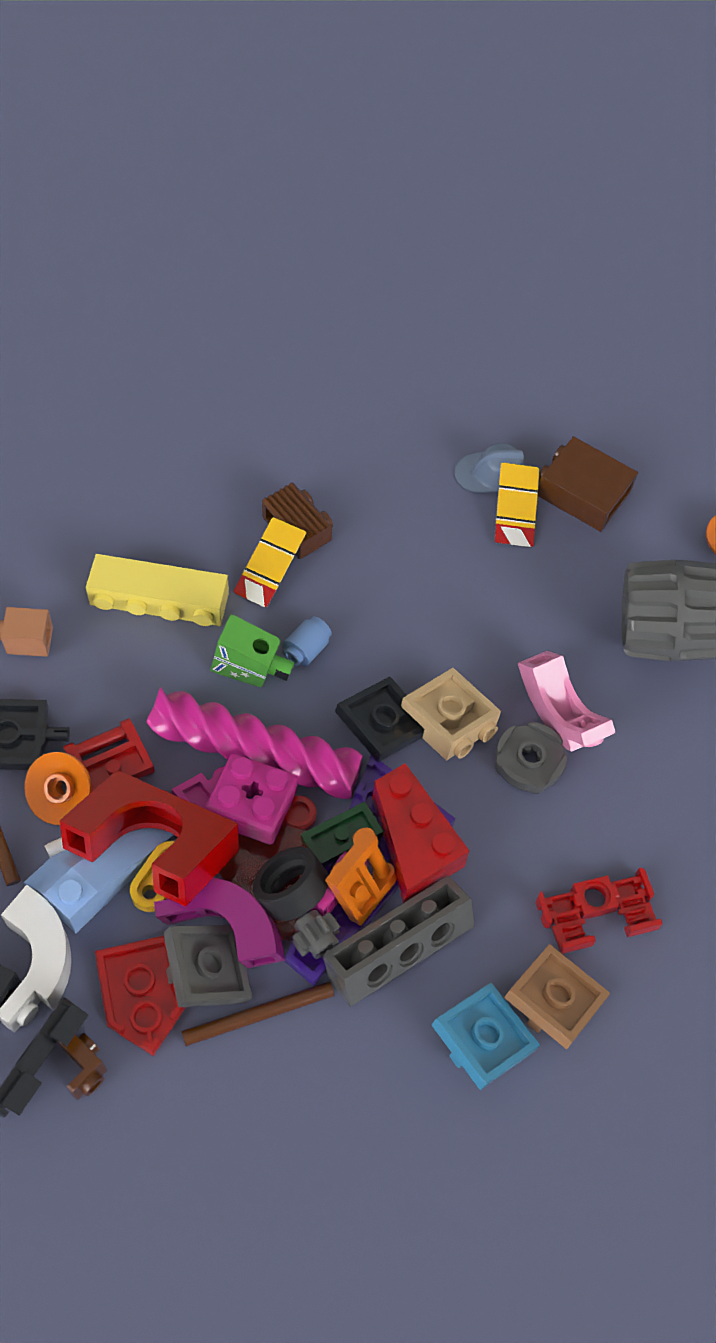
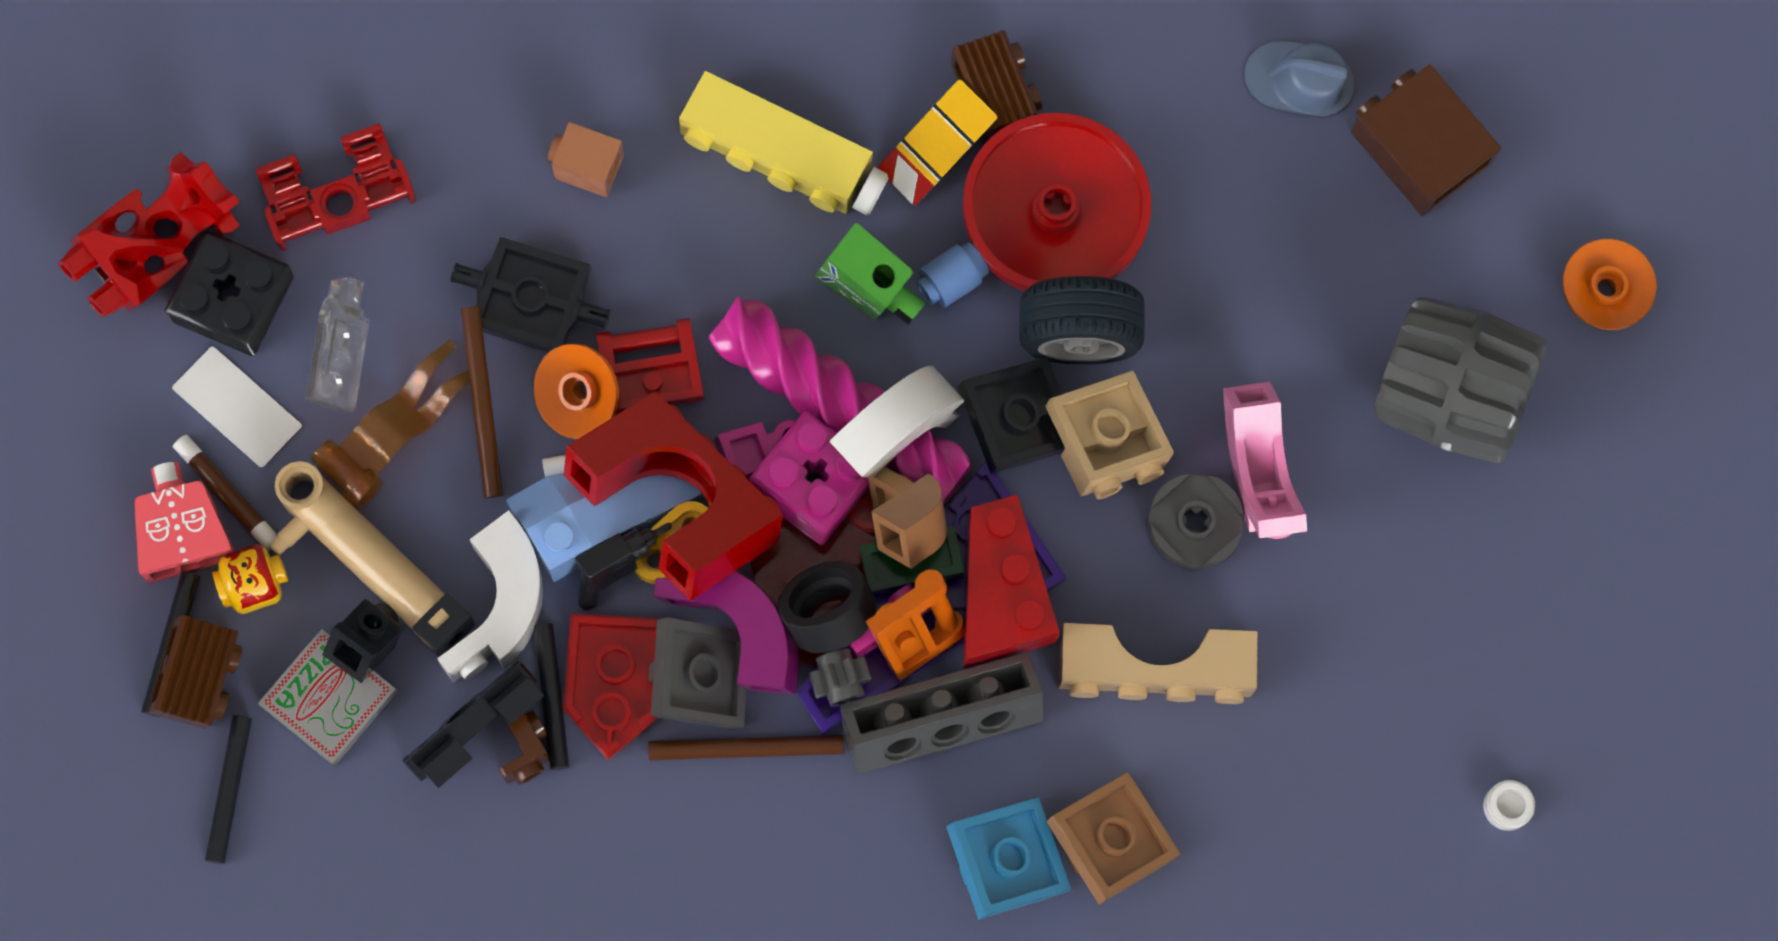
camera: 15 degrees right, 15 degrees up
(96, 1020) = (552, 696): none -> black bar
(116, 901) = (613, 561): none -> black piece
(233, 602) = (870, 191): none -> white tile
(300, 736) = (897, 419): none -> white arch
(329, 801) = (907, 516): none -> medium nougat brick
(364, 578) = (1056, 200): none -> red dish
(407, 641) = (1082, 320): none -> black wheel
(498, 870) = (1096, 661): none -> tan arch
(517, 505) = (1312, 146): yellow sticker -> none
(626, 893) = (1251, 736): red piece -> none

